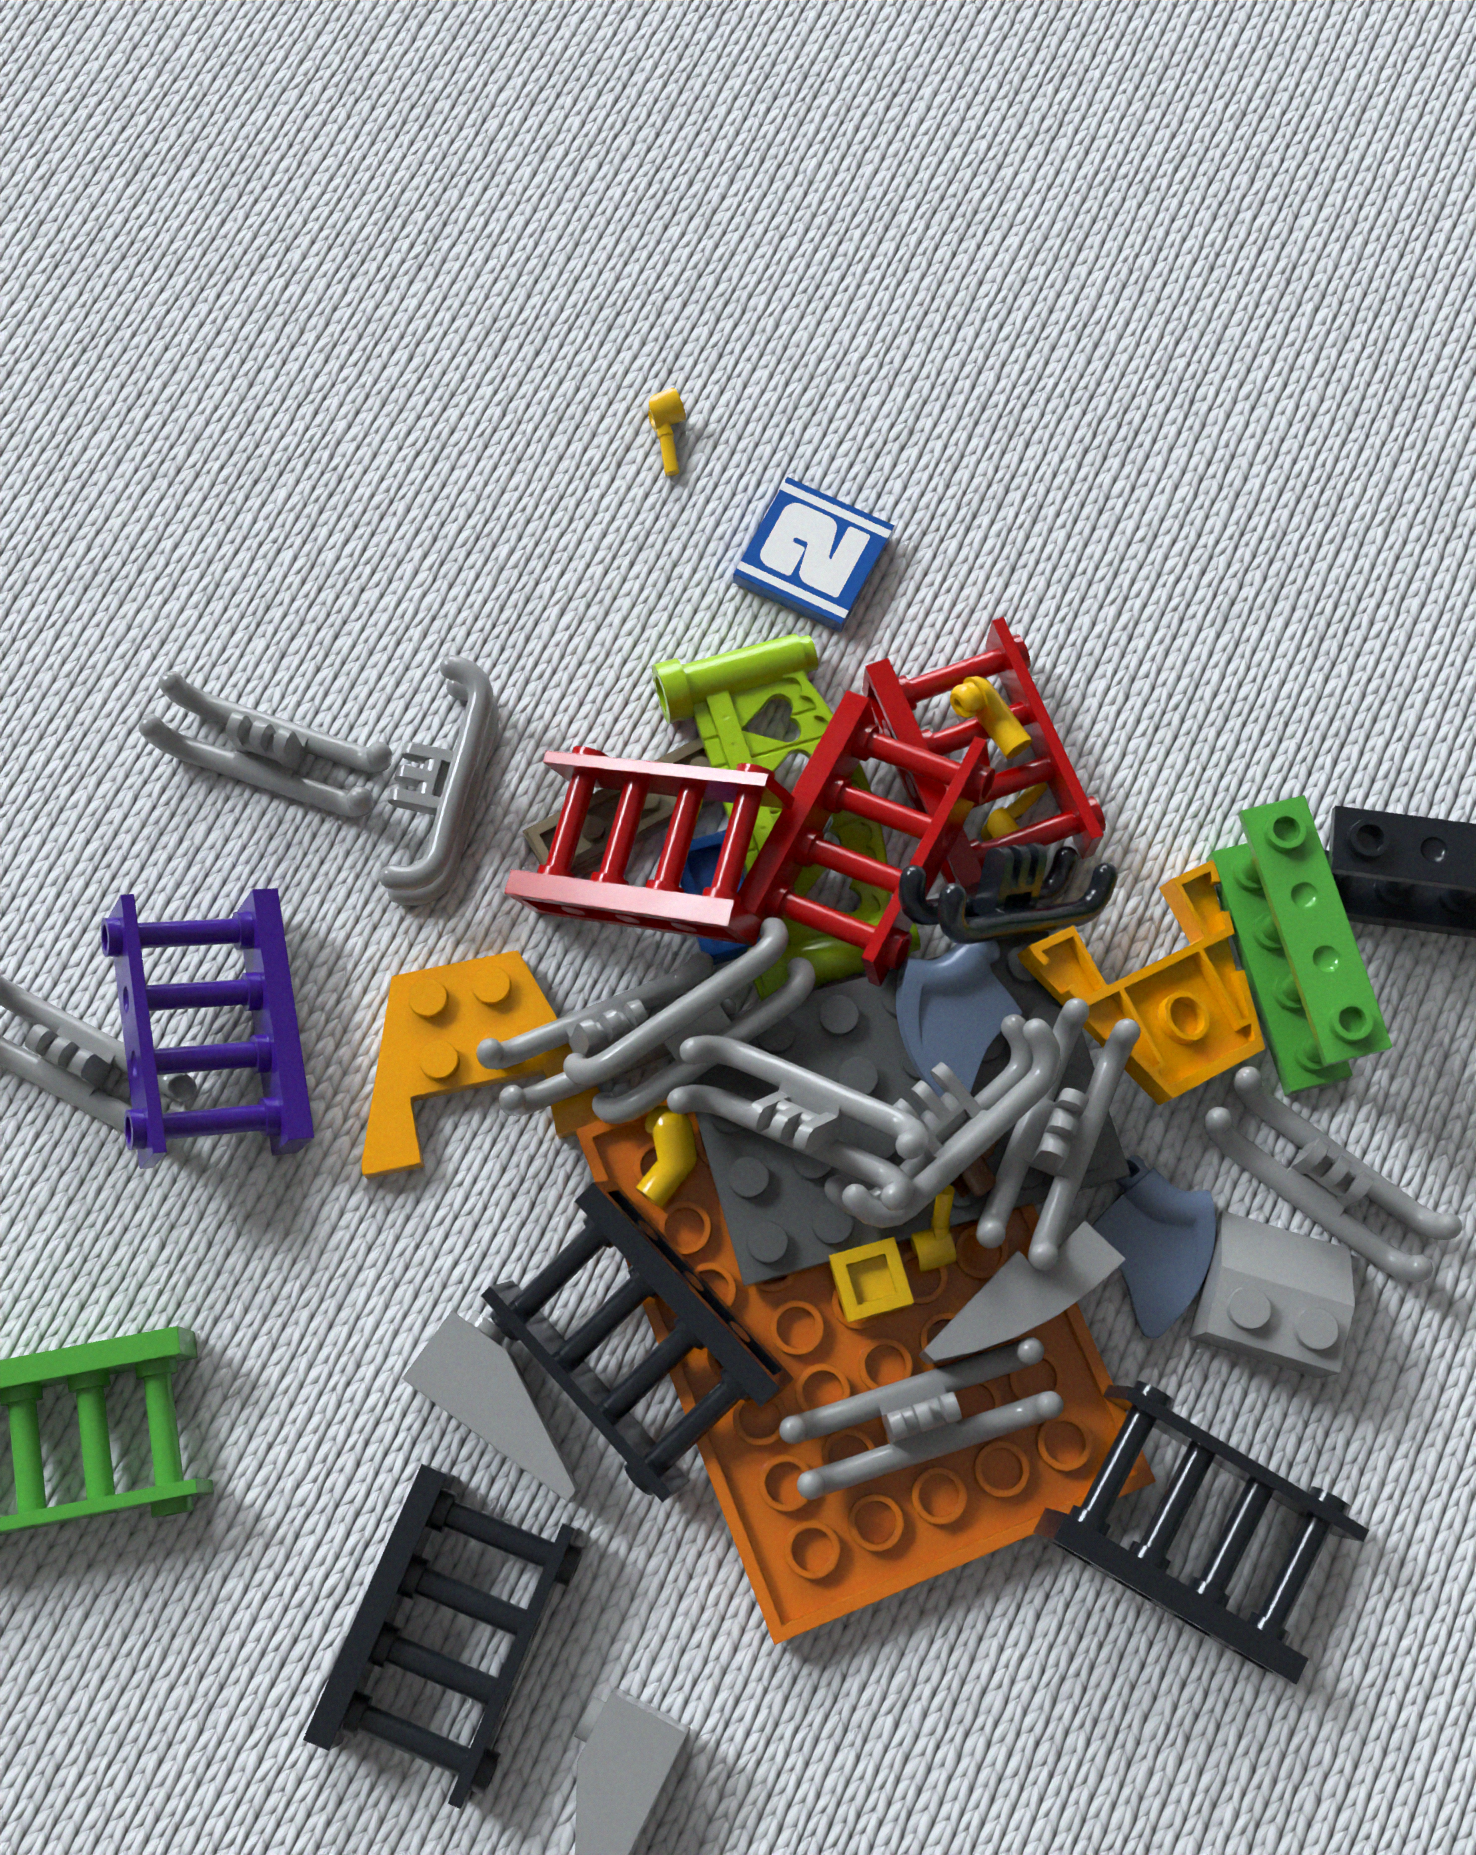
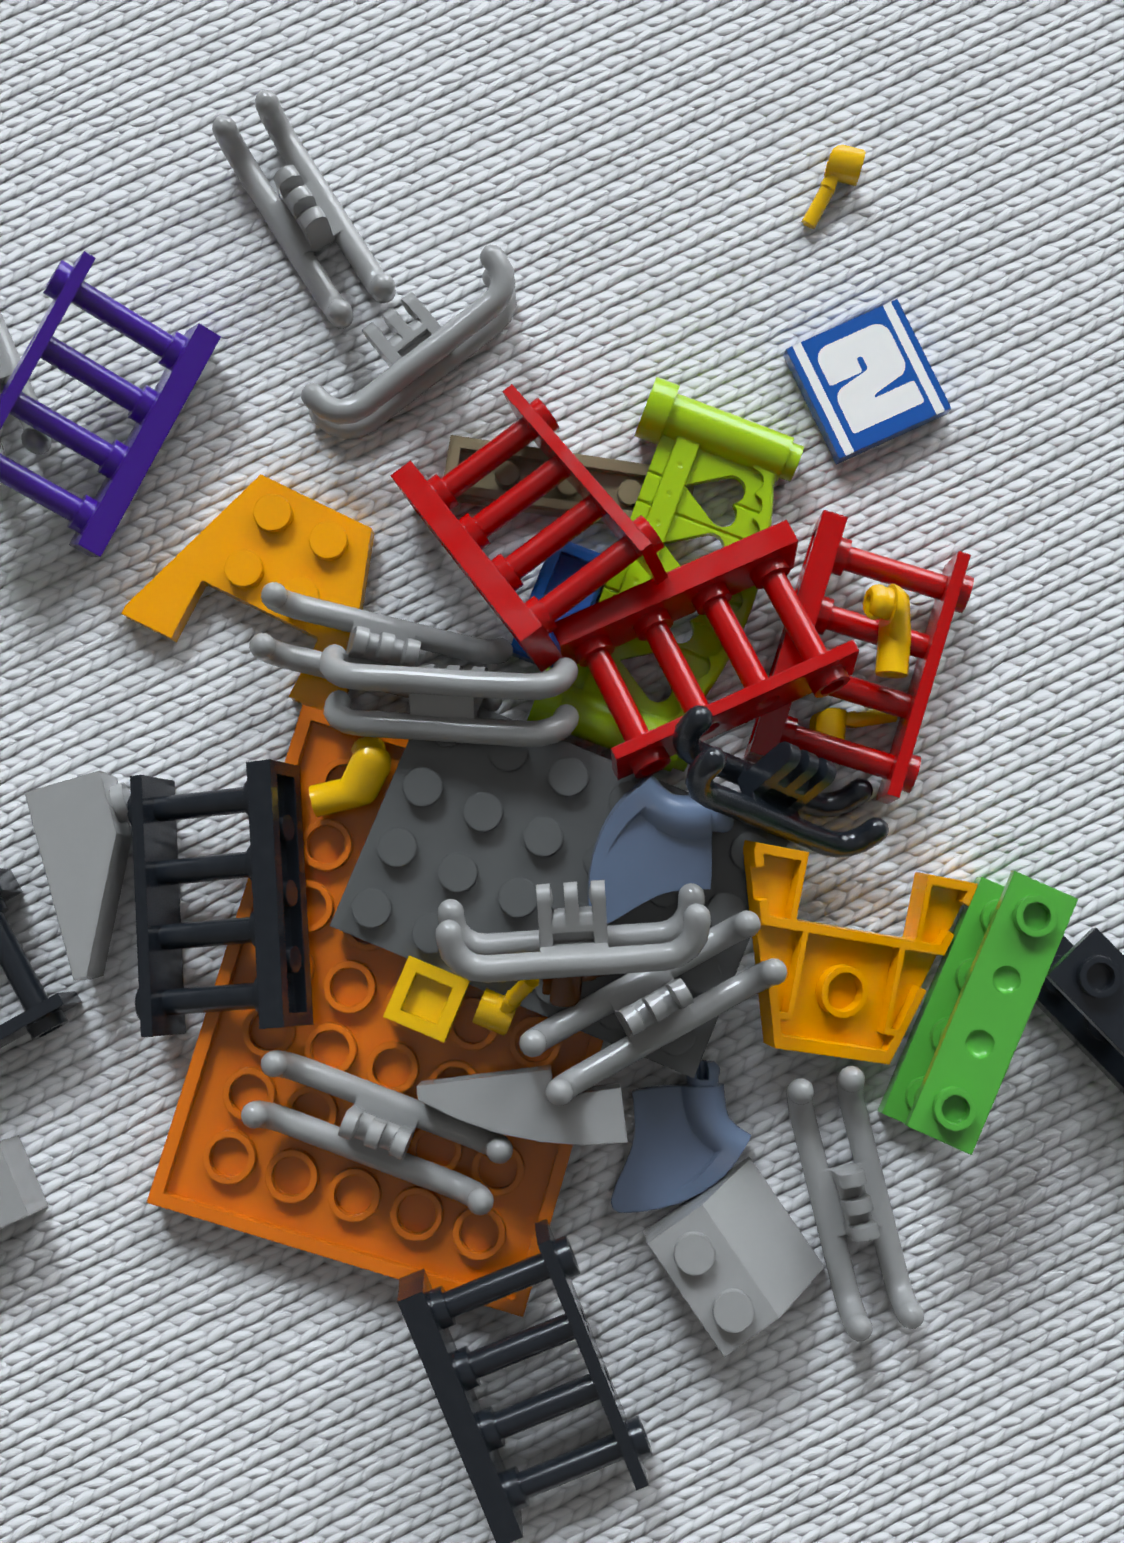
camera: 40 degrees right, 10 degrees up
(804, 1113) = (464, 838): light grey piece -> none

